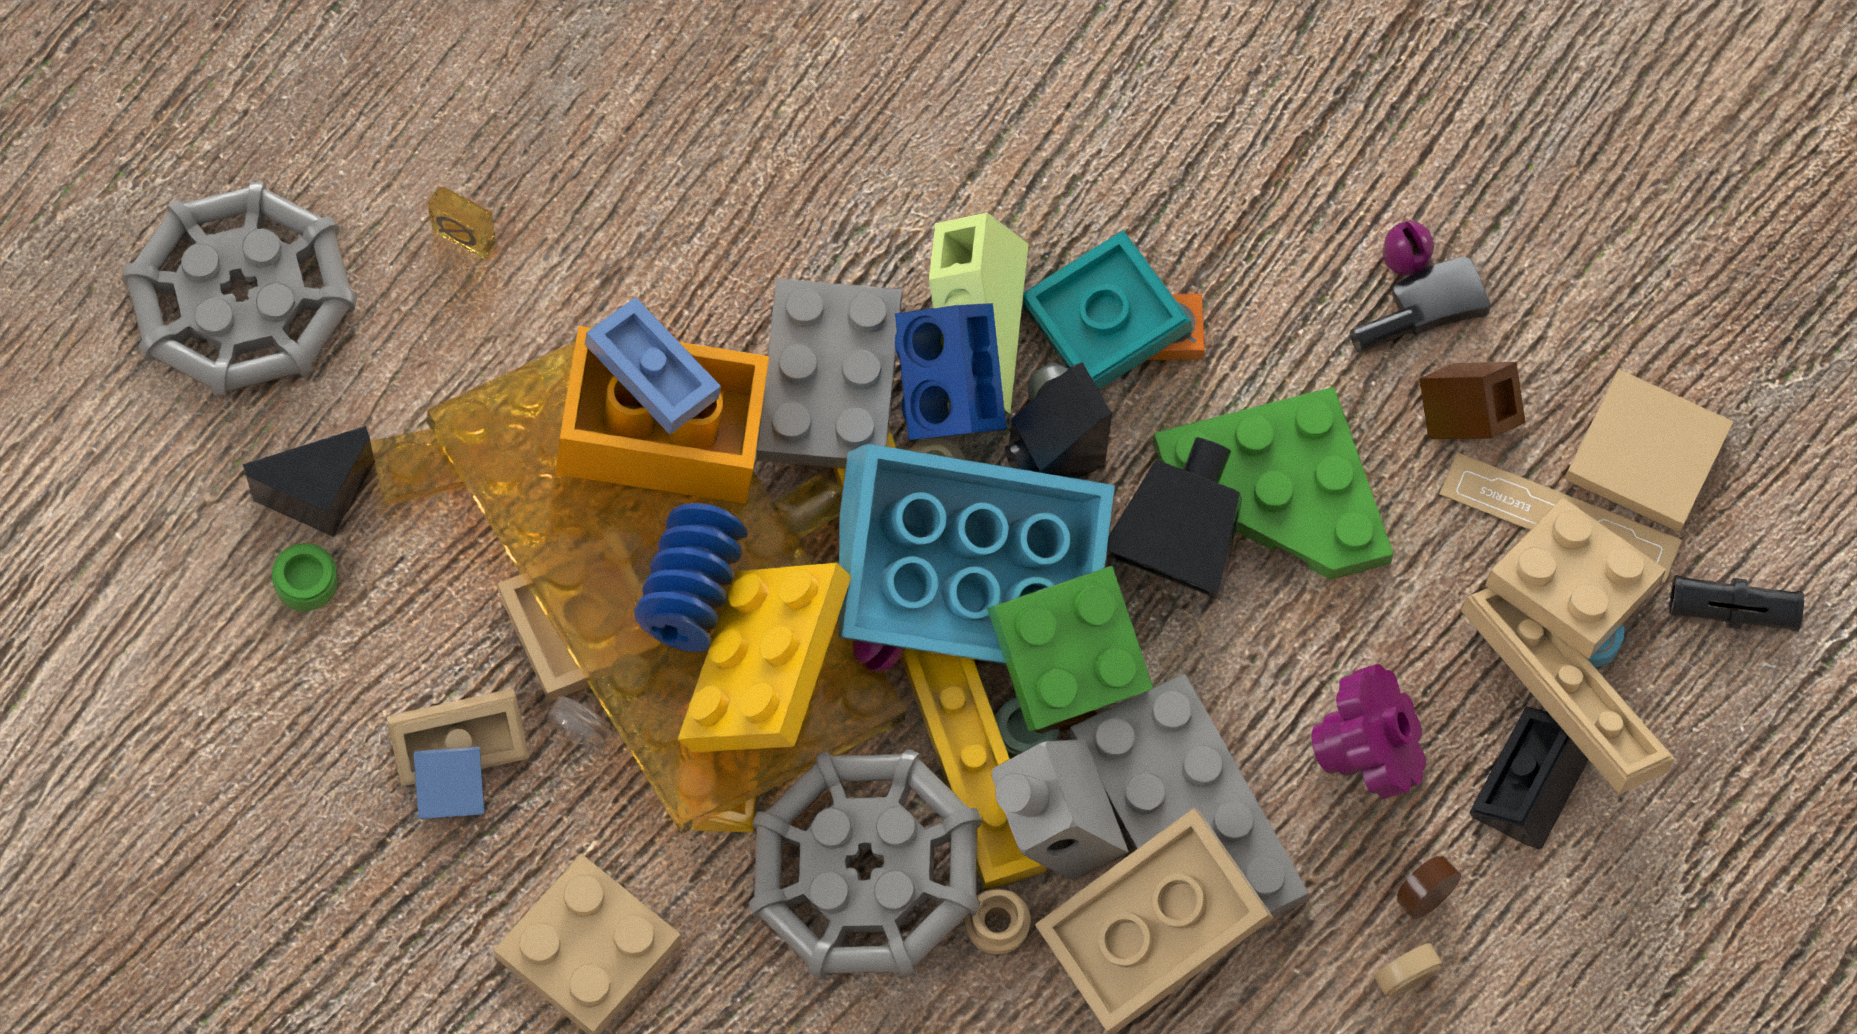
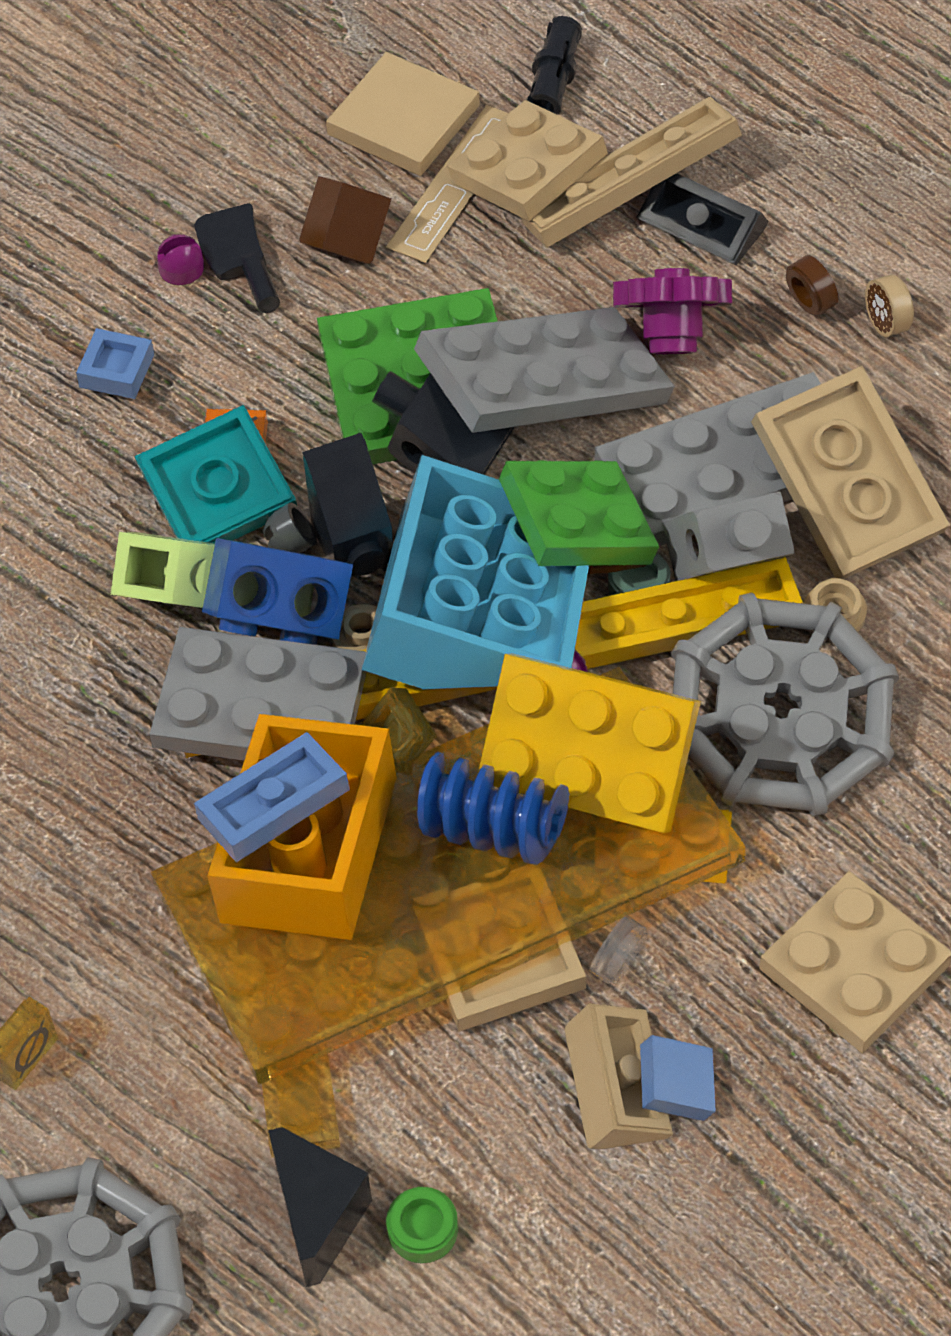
camera: 80 degrees left, 10 degrees down
(1252, 200) = (115, 363): none -> medium blue plate
(1257, 603) = (543, 368): none -> light grey plate

